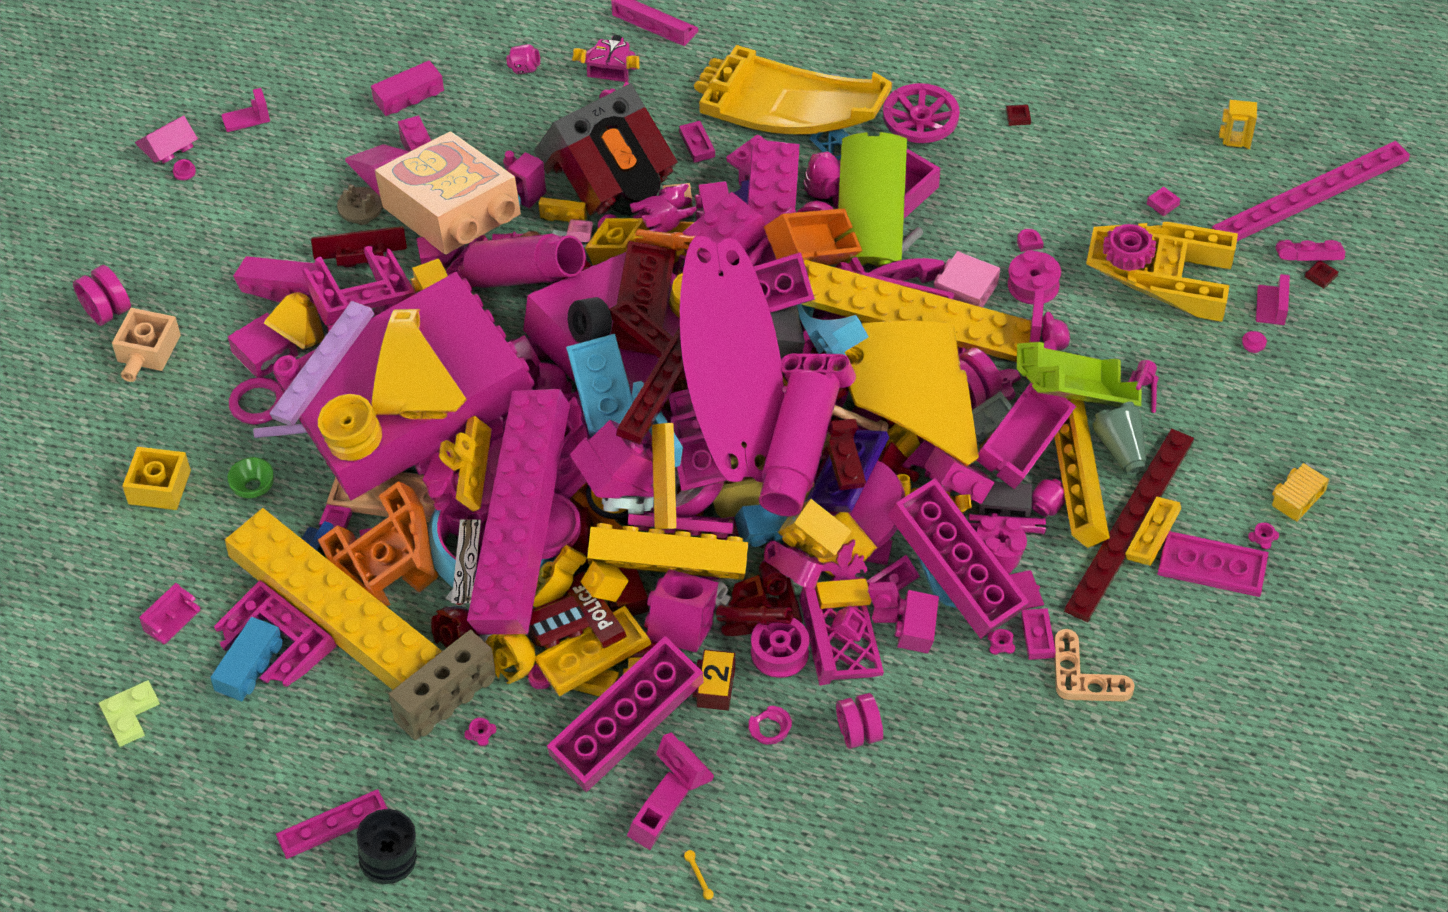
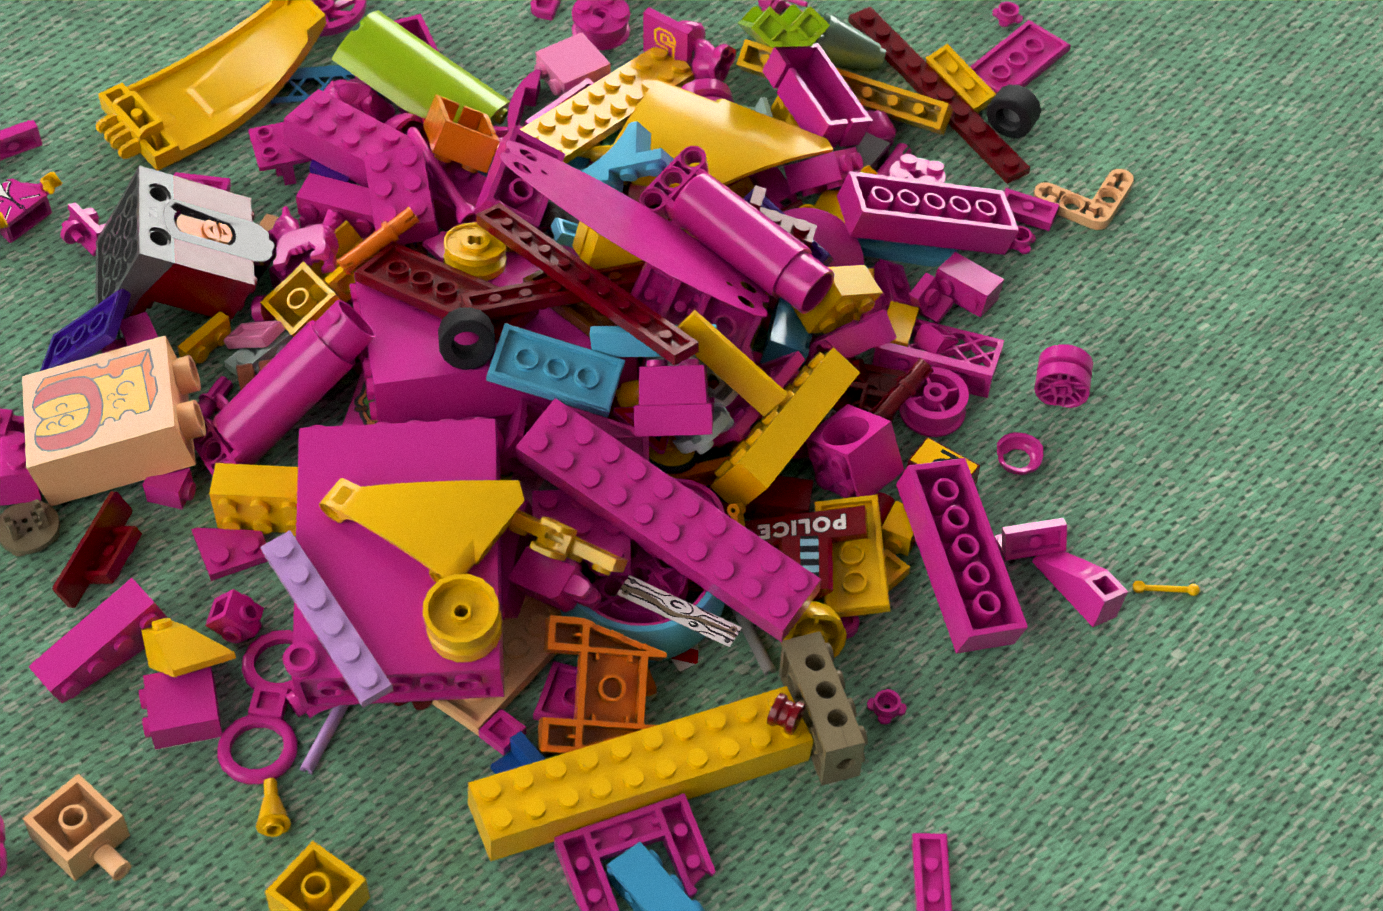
camera: 65 degrees left, 0 degrees up
(209, 430) = (272, 816): none -> yellow cone
(249, 470) = (383, 780): bright green piece -> none
(386, 846) = (1009, 845): black wheel -> none
(389, 289) = (201, 591): dark pink wedge -> none
(409, 657) = (786, 713): none -> dark red wheel
(450, 624) = (751, 666): dark red cylinder -> none
(509, 145) = (88, 332): none -> dark purple tile
(604, 581) = (782, 500): yellow brick -> none
(1135, 578) = (1013, 111): none -> black tyre

